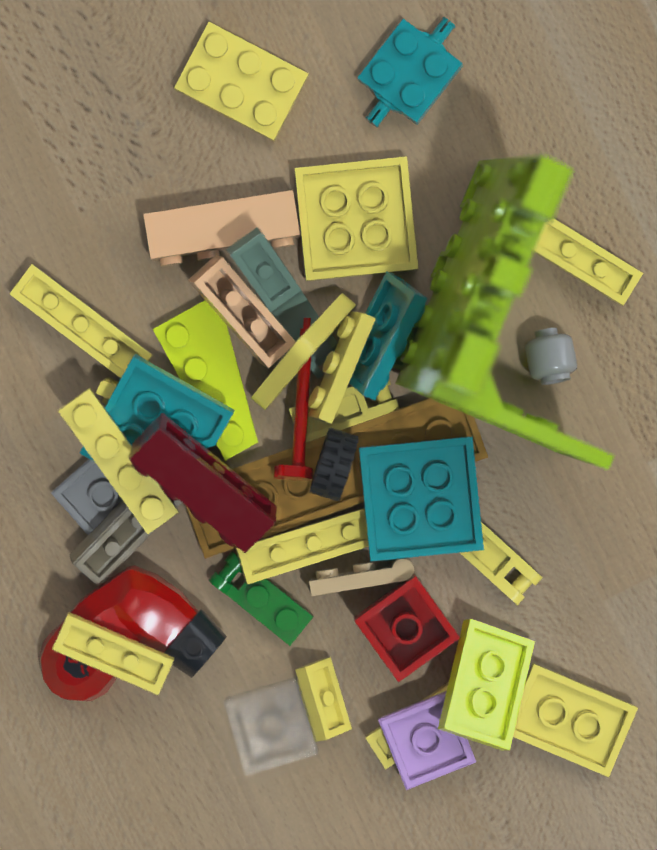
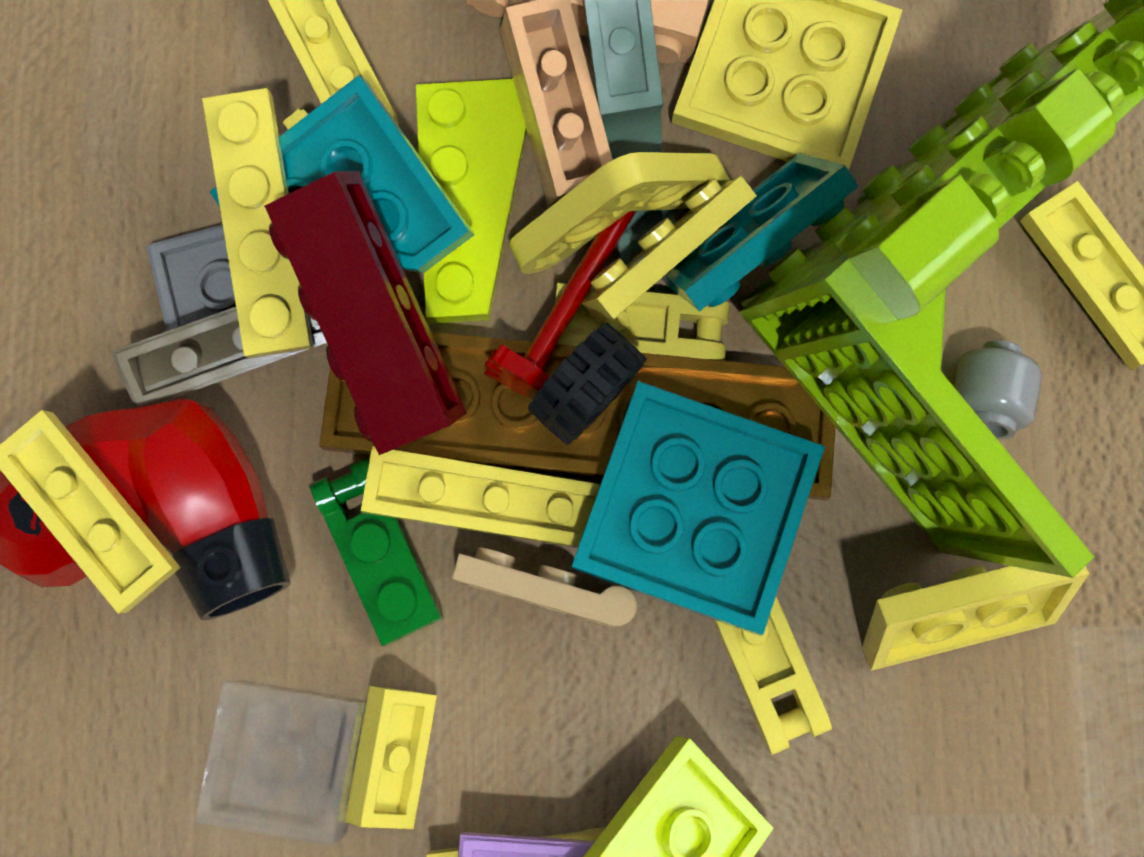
camera: 30 degrees right, 10 degrees down
(406, 628) = (578, 705): red brick -> none
(582, 487) = (964, 612): none -> light yellow plate

